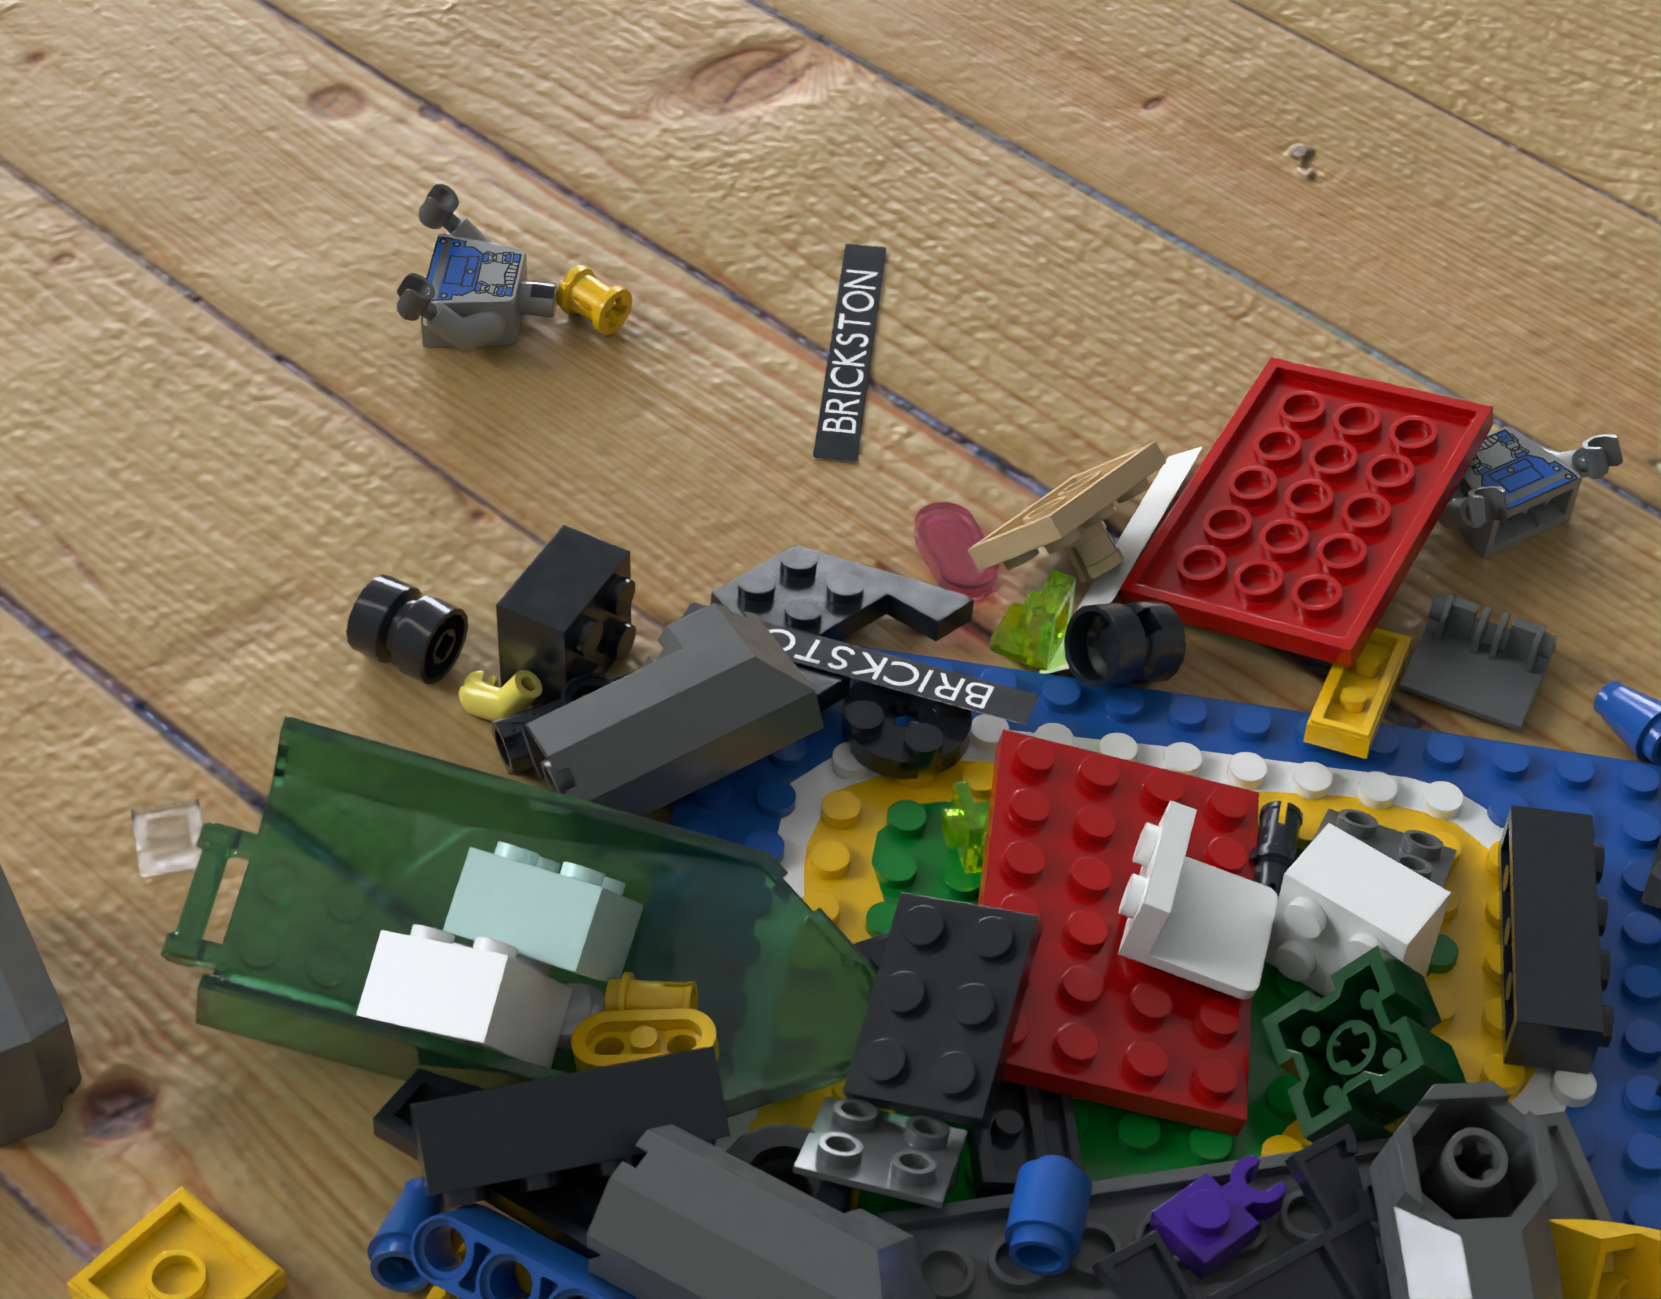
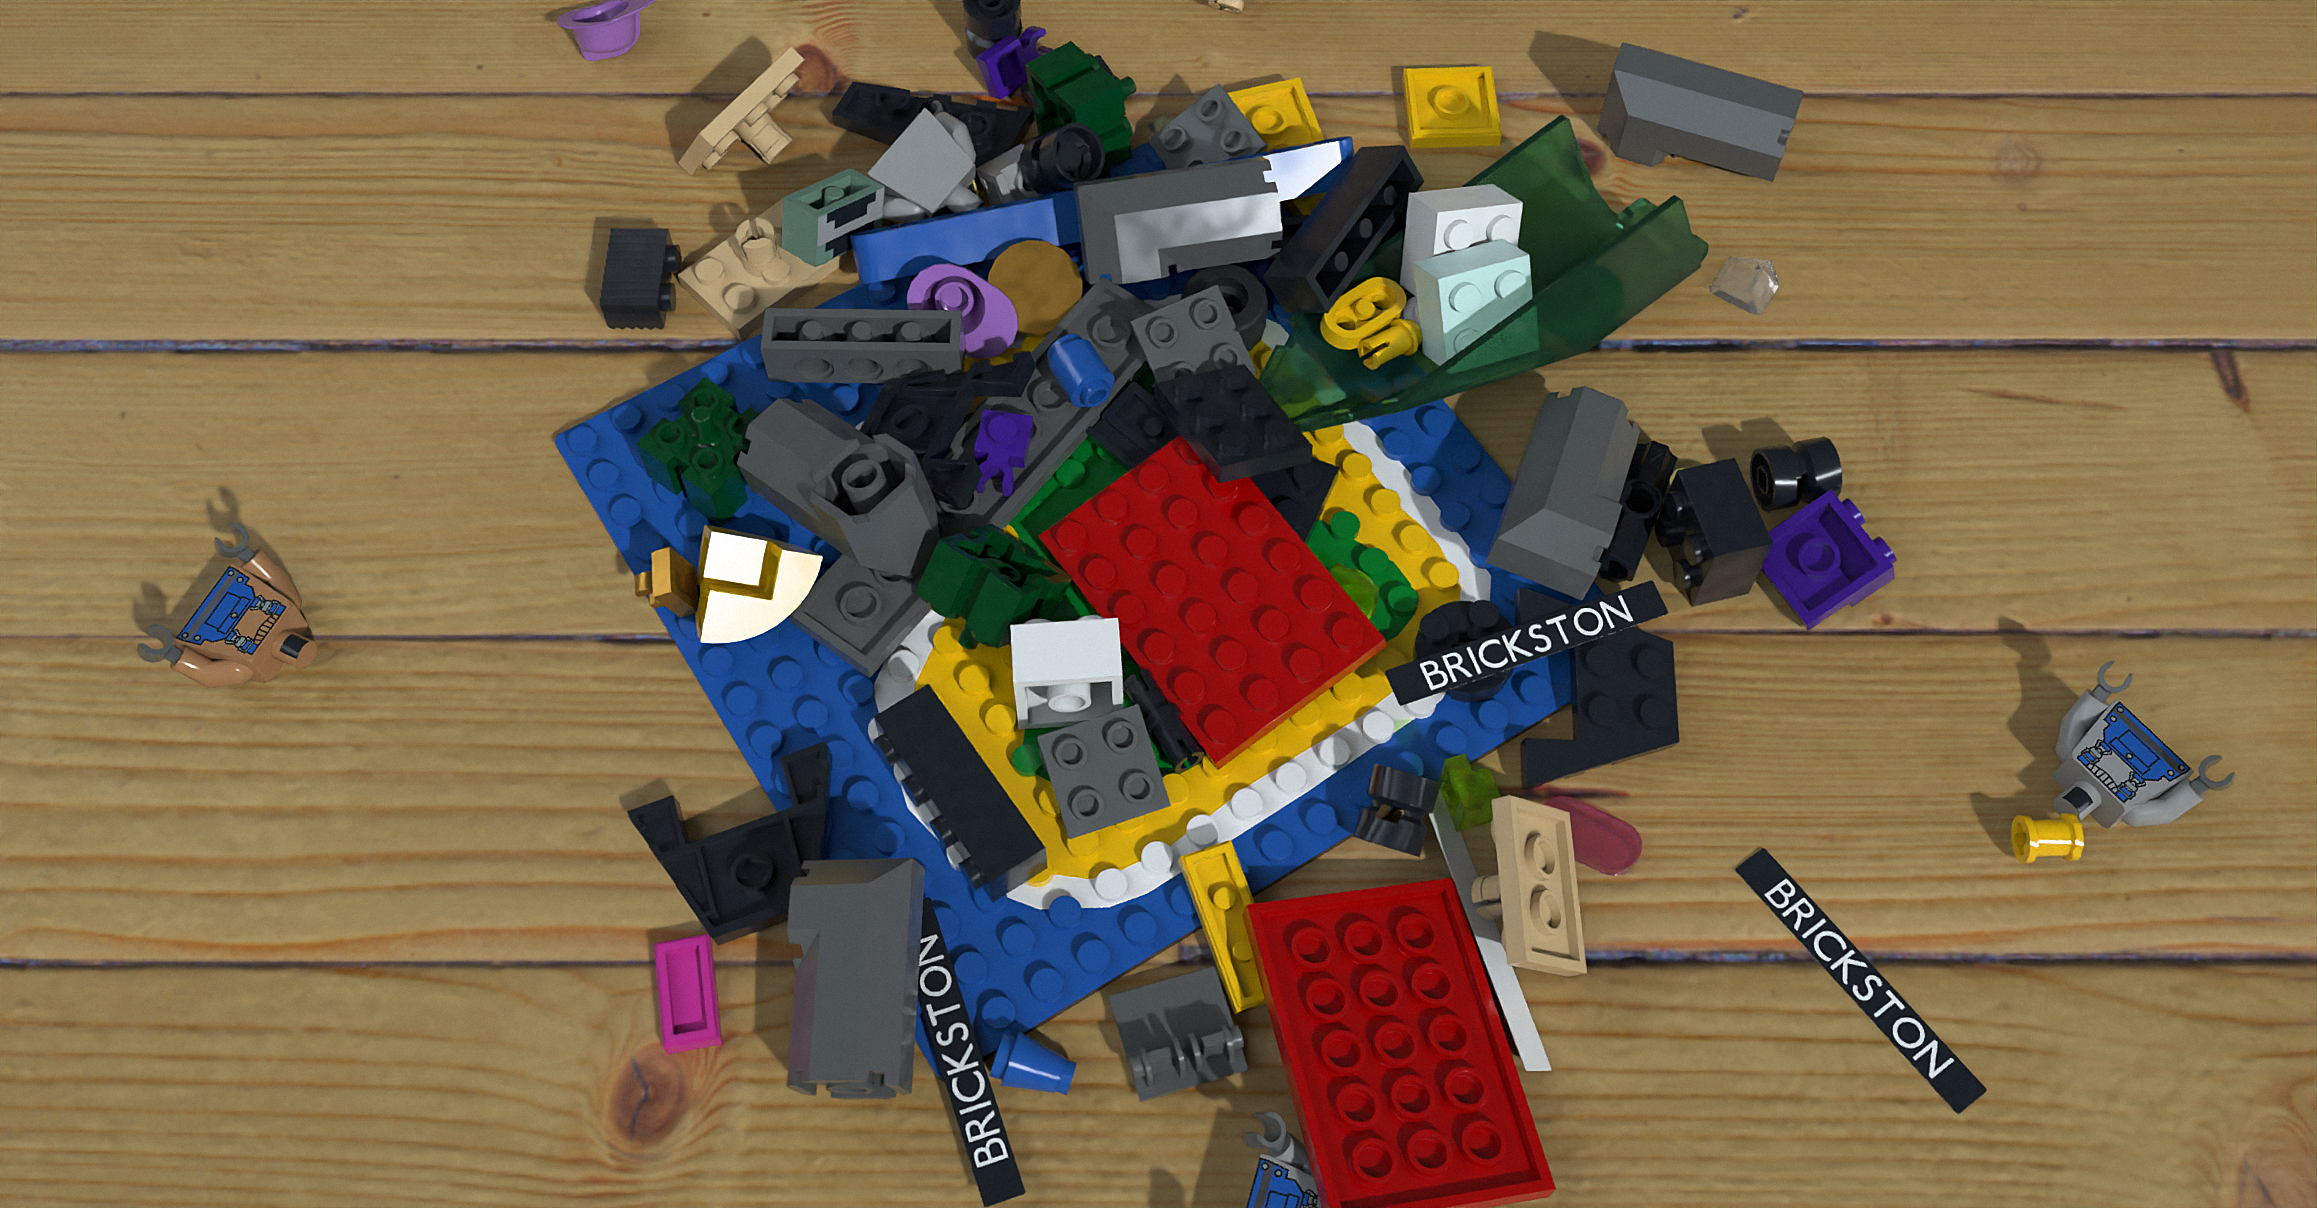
camera: 140 degrees right, 15 degrees up
(474, 550) = (1826, 559): none -> dark purple plate
(1193, 914) = (1160, 595): white bracket -> none

